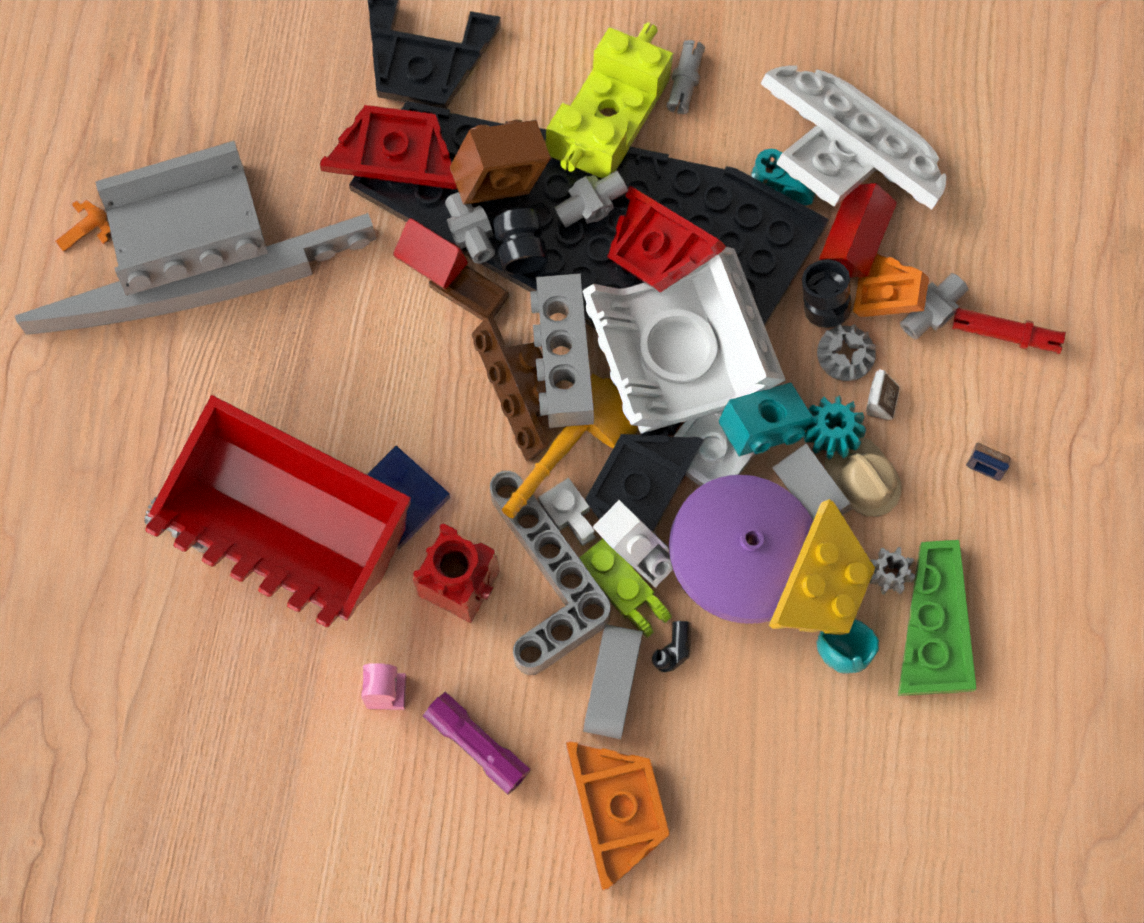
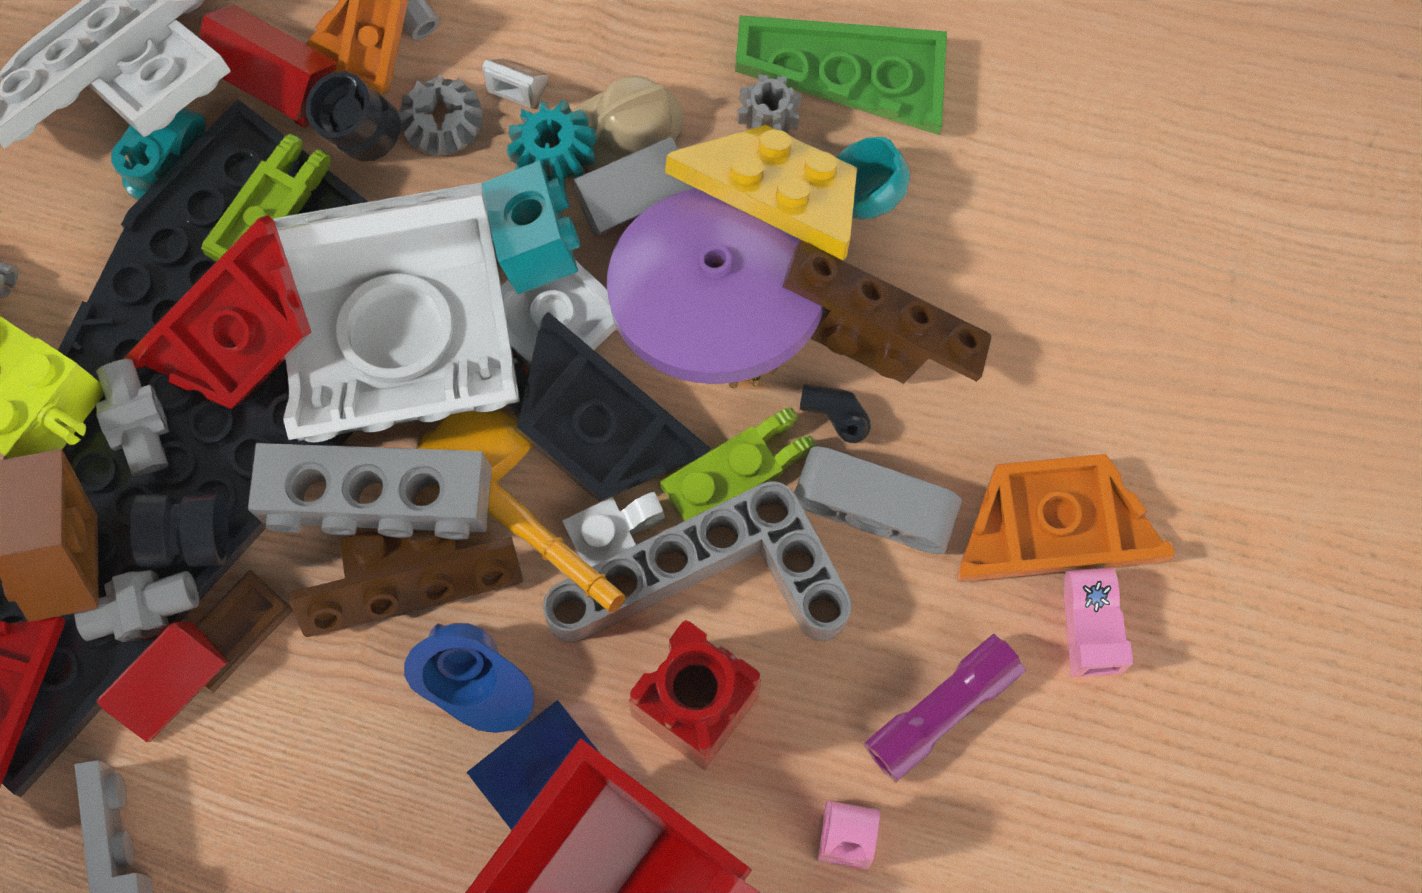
camera: 85 degrees left, 0 degrees up
(457, 432) = (469, 678): none -> blue piece
(549, 839) = (1095, 623): none -> bright pink leg
(635, 543) = (684, 431): white slope -> none
(737, 664) = (882, 322): none -> reddish brown bracket
(757, 250) = (268, 193): none -> lime hinge

